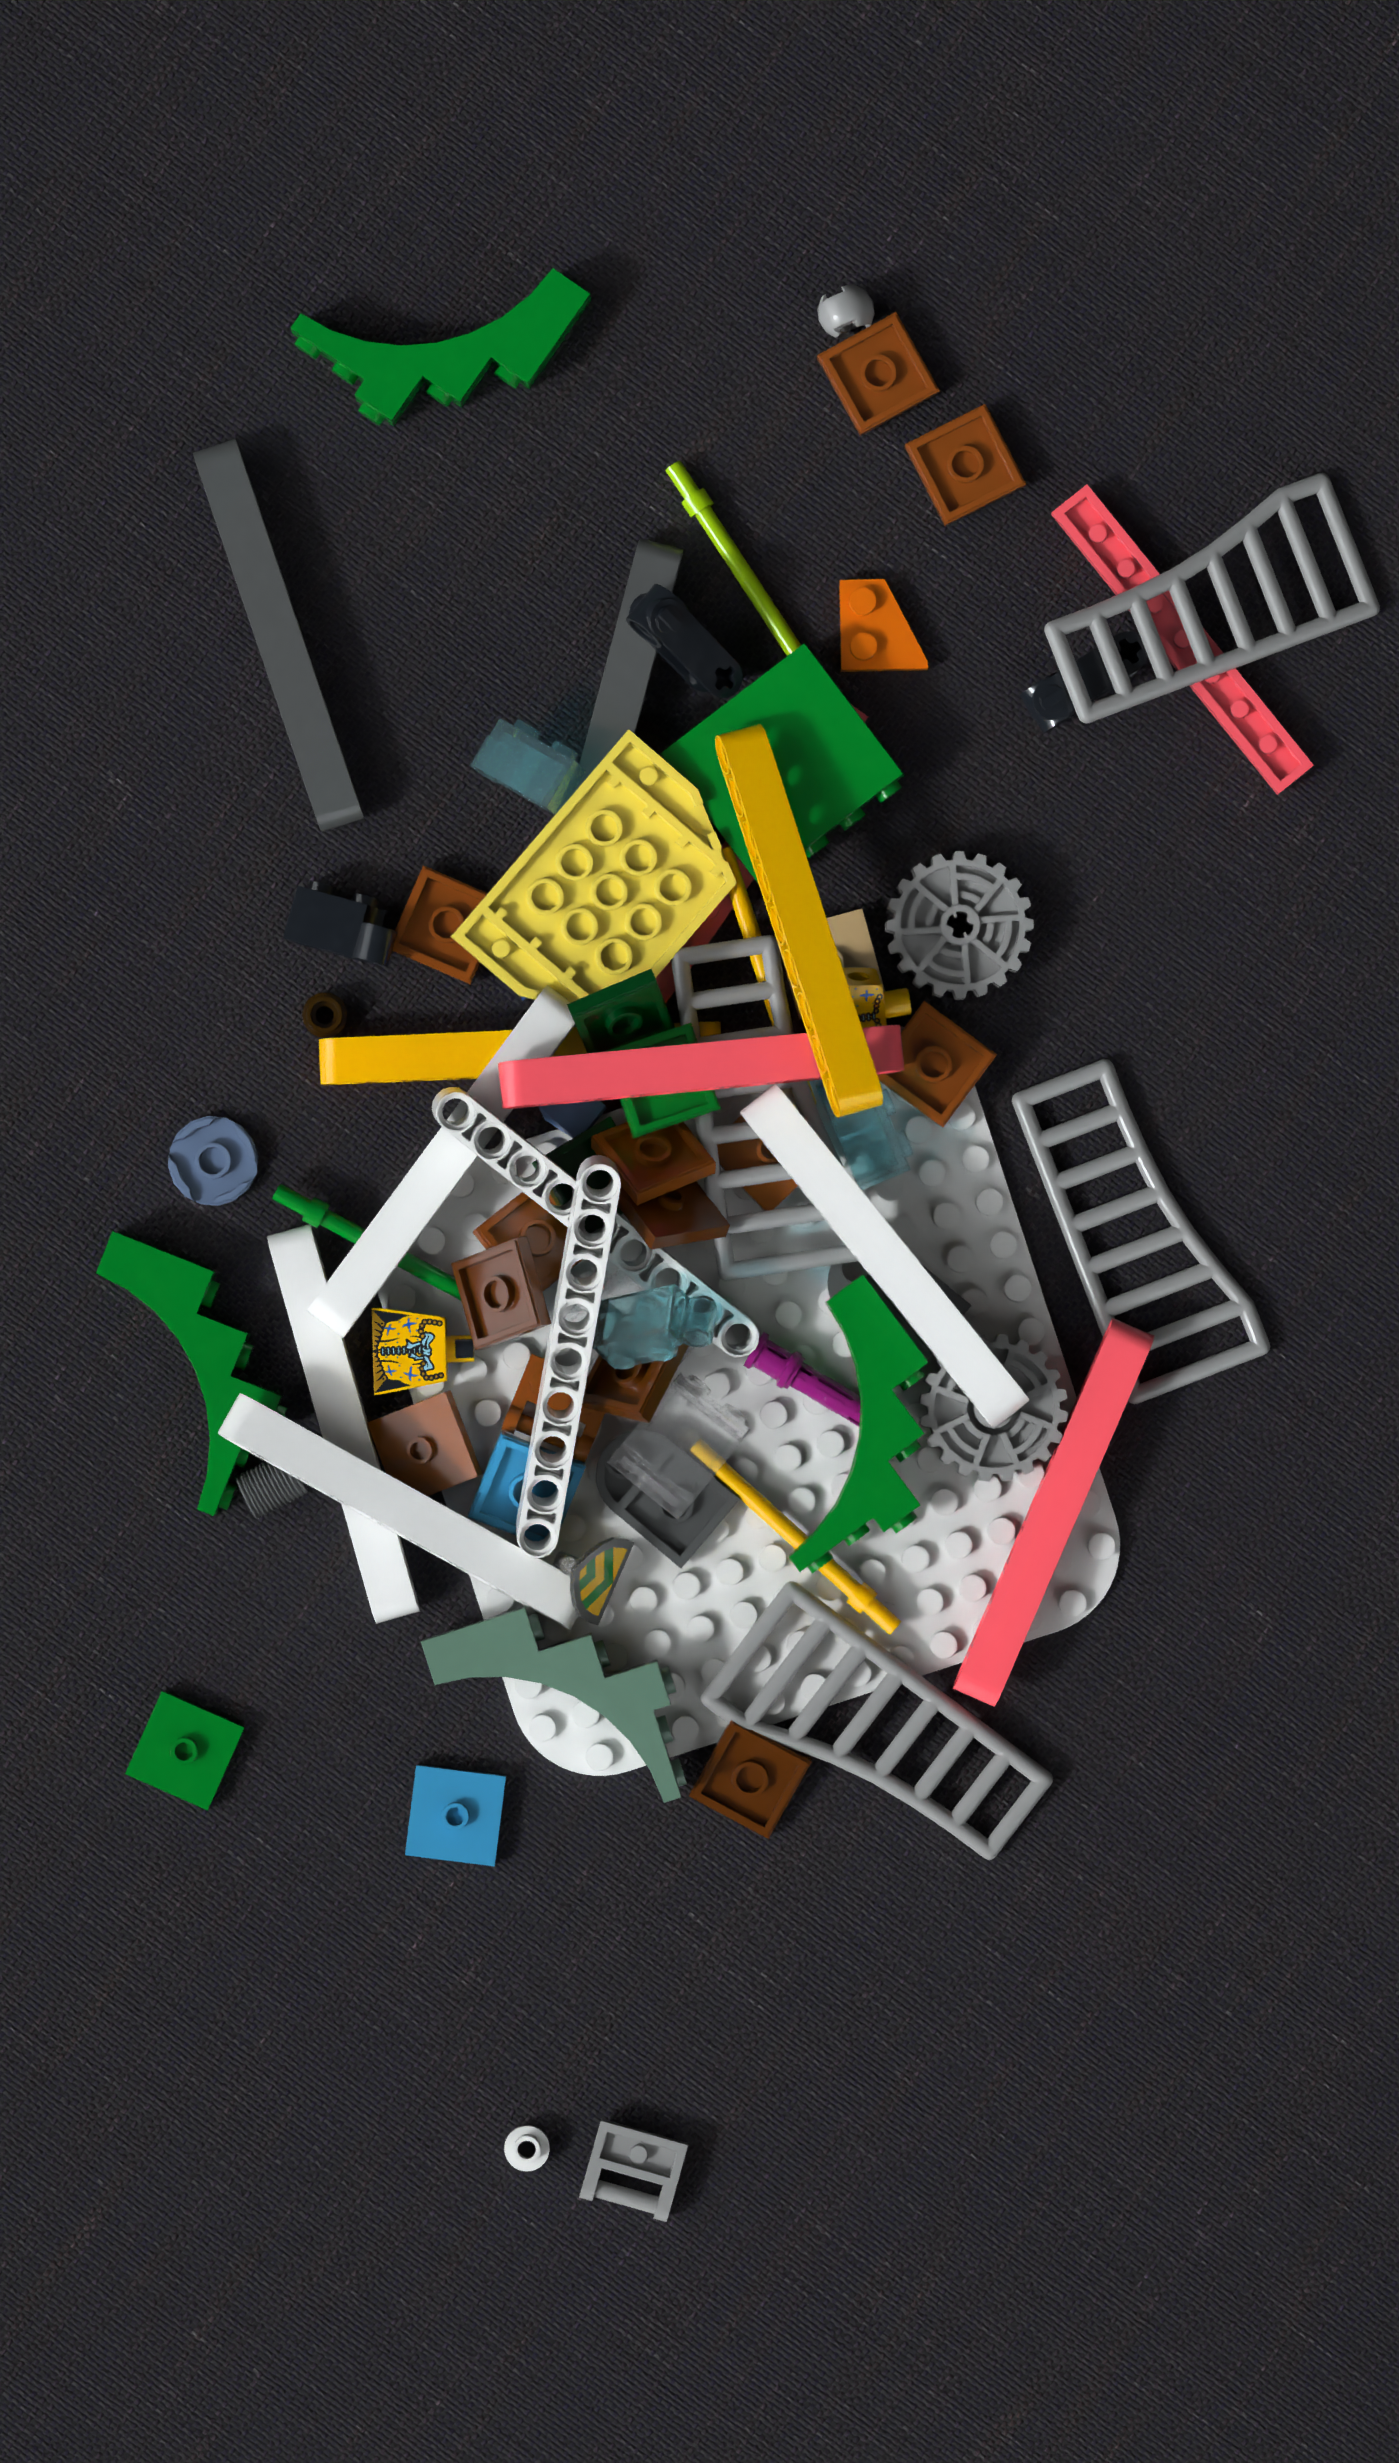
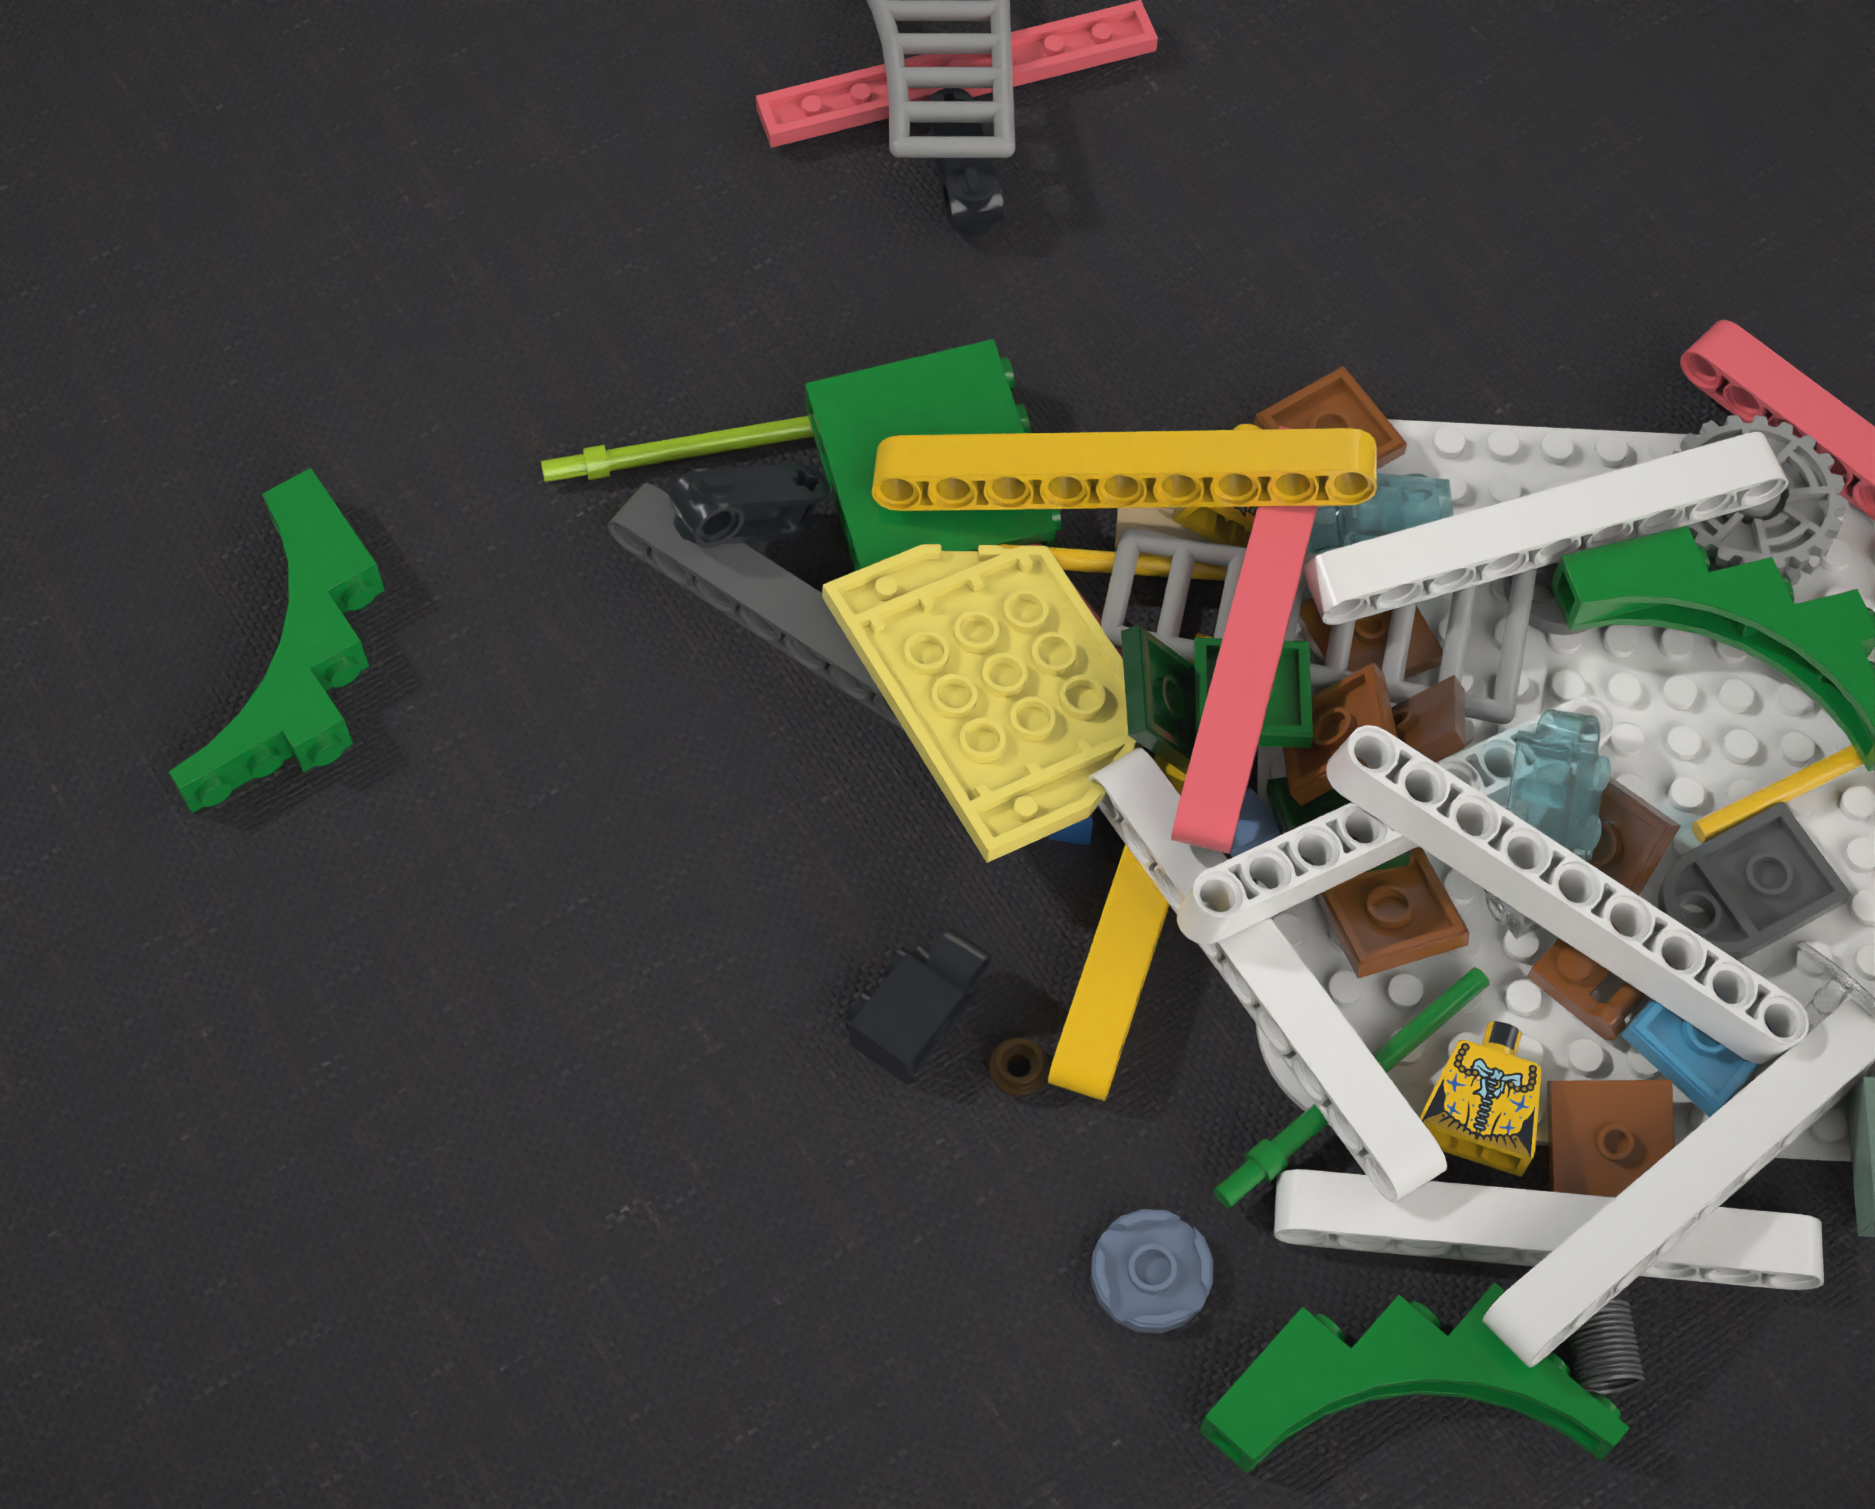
camera: 65 degrees left, 25 degrees down
(278, 635) = (534, 947): dark grey beam -> none
(431, 917) = (955, 888): dark orange plate -> none
(501, 1293) = (1453, 958): reddish brown plate -> none
(528, 766) = (814, 719): clear light blue hinge -> none
(680, 1445) = (1726, 836): clear panel -> none
(792, 1371) = (1642, 695): magenta pin -> none
(845, 311) = (462, 246): light grey piece -> none
(875, 630) = (816, 341): orange wing -> none
(878, 374) = (543, 246): dark orange plate -> none
(965, 465) = (681, 201): dark orange plate -> none
(990, 909) = (1180, 361): light grey piece -> none
(1155, 1192) = (1545, 290): light grey bar -> none

